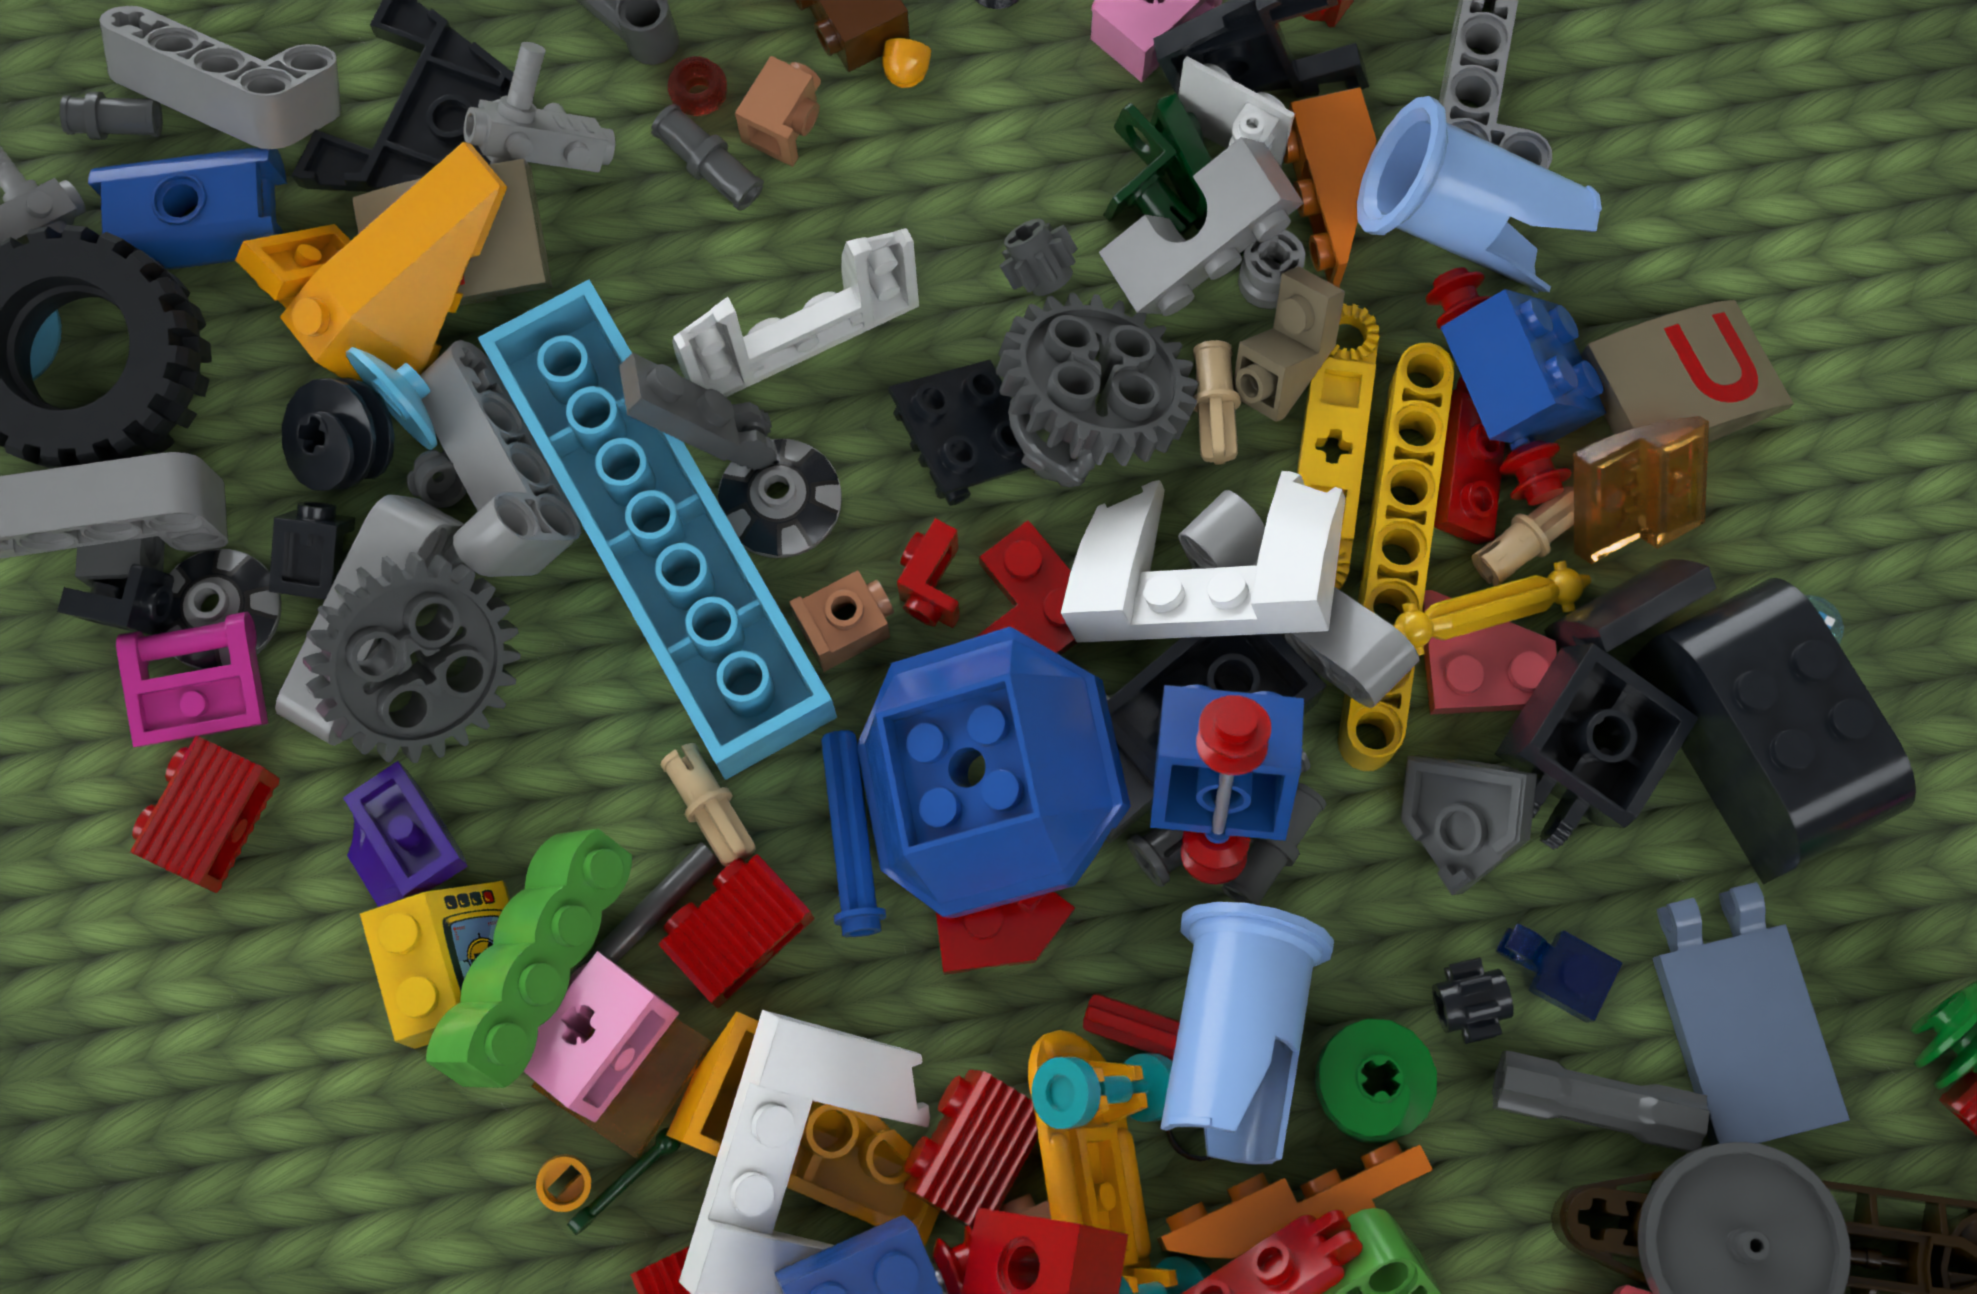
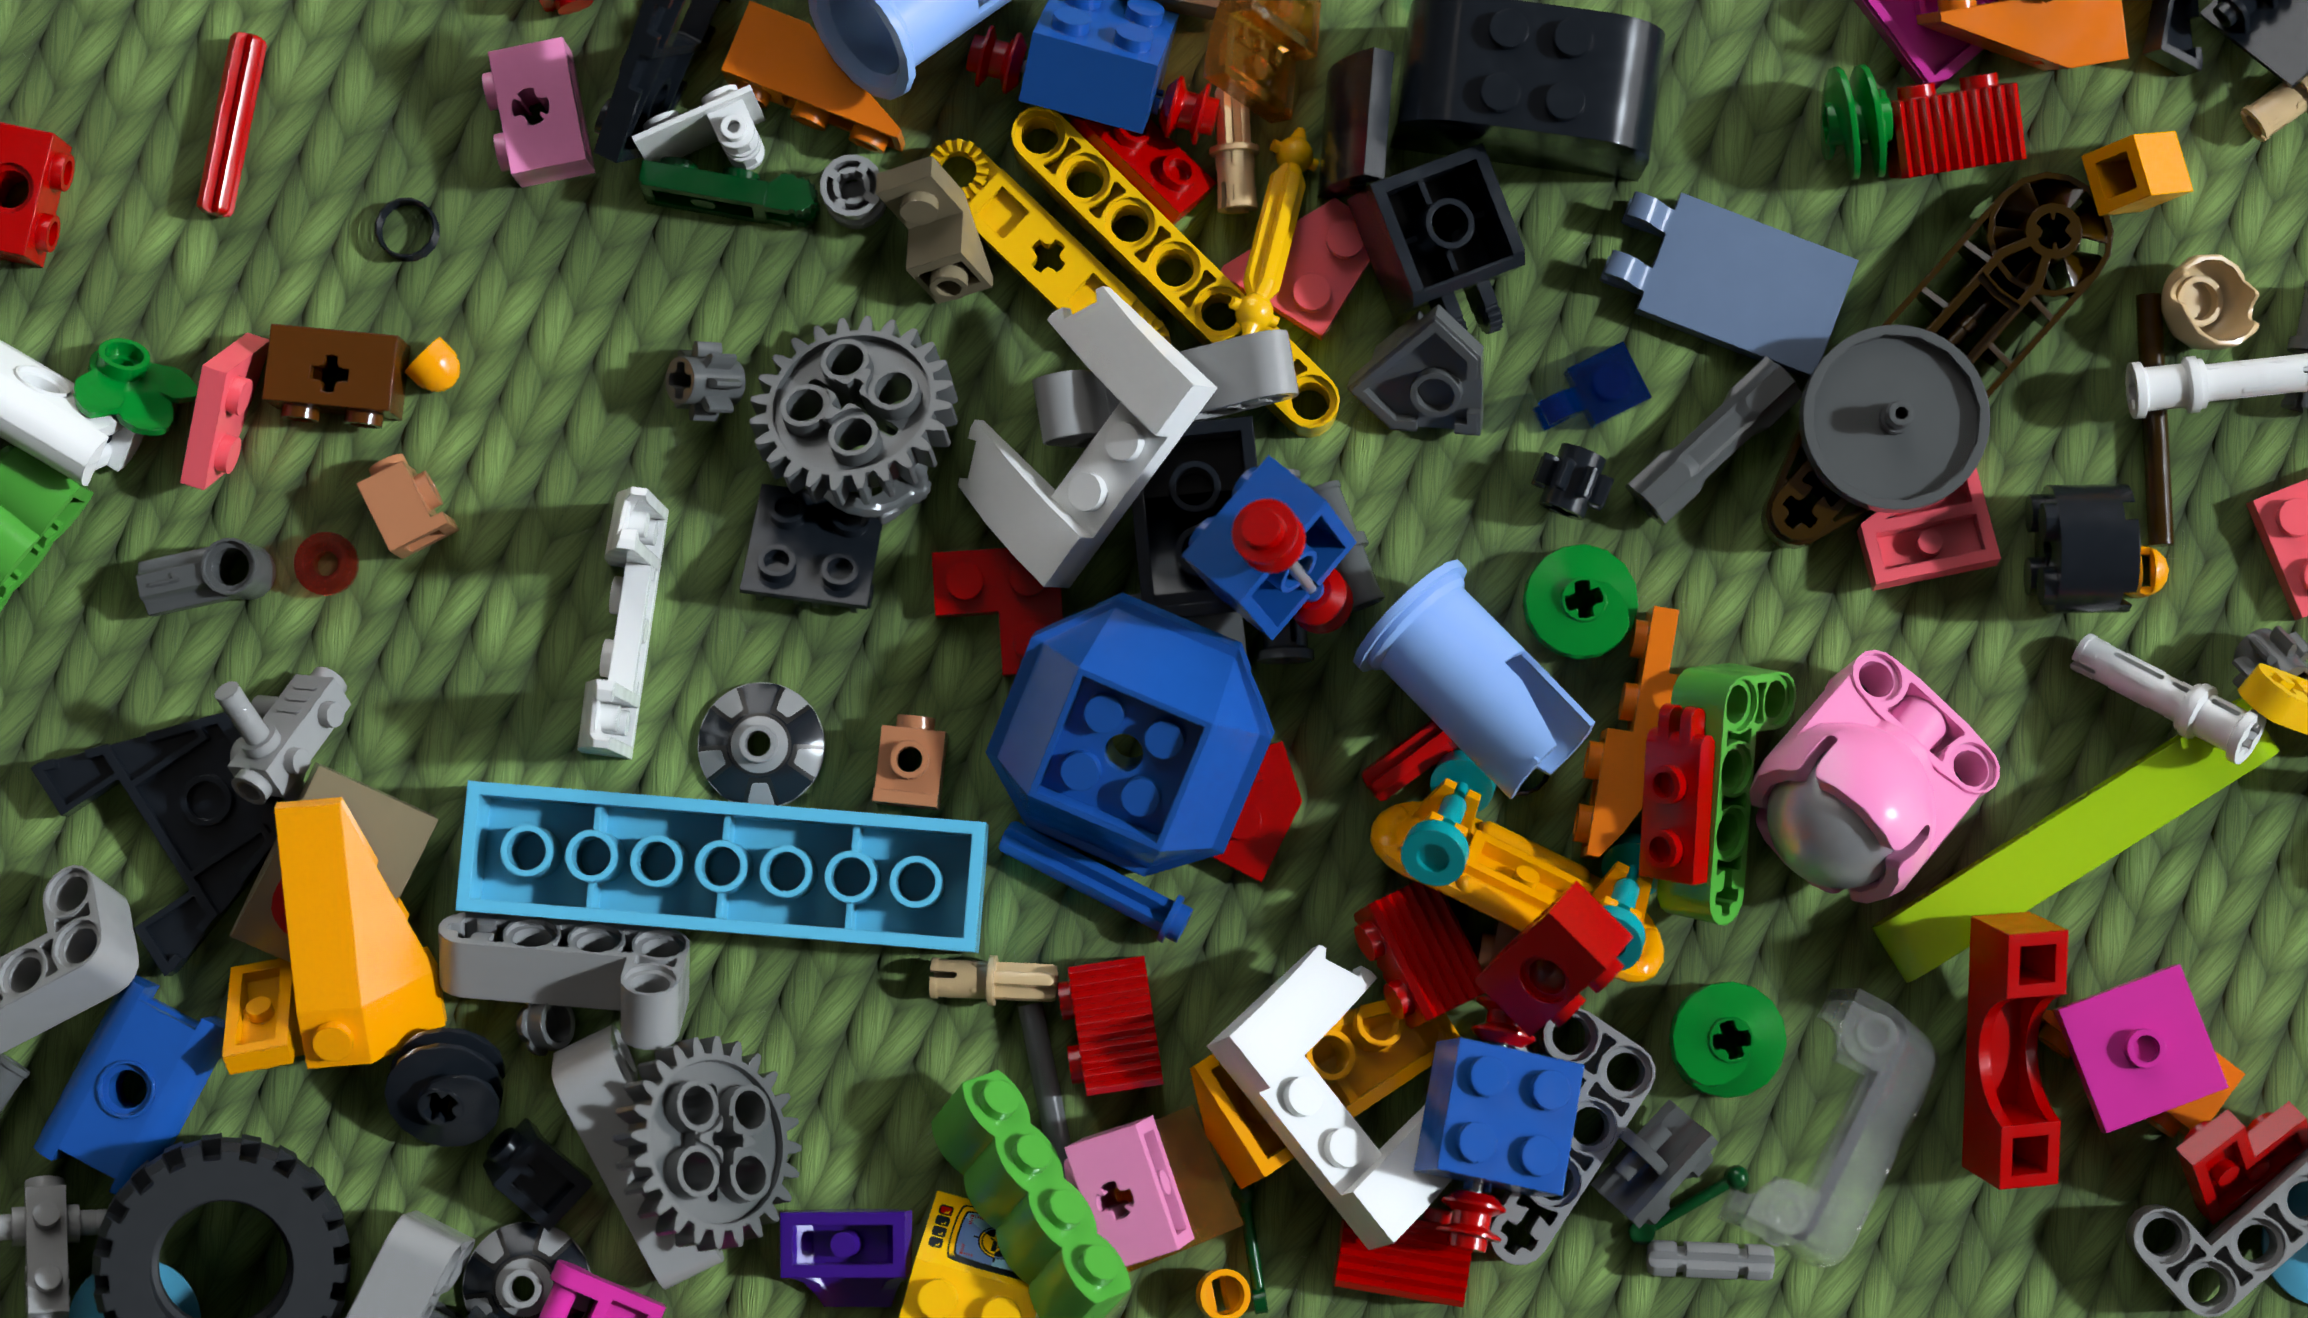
camera: 55 degrees left, 10 degrees up
(400, 391) = (456, 1008): medium azure dish -> none
(697, 415) = (654, 769): dark grey hinge -> none
(707, 157) = (403, 600): dark grey pin -> none
(925, 563) = (908, 662): red bracket -> none
(1148, 188) = (707, 243): dark green bracket -> none
(1216, 401) = (938, 323): tan axle -> none
(1245, 203) = (791, 179): light grey arch -> none

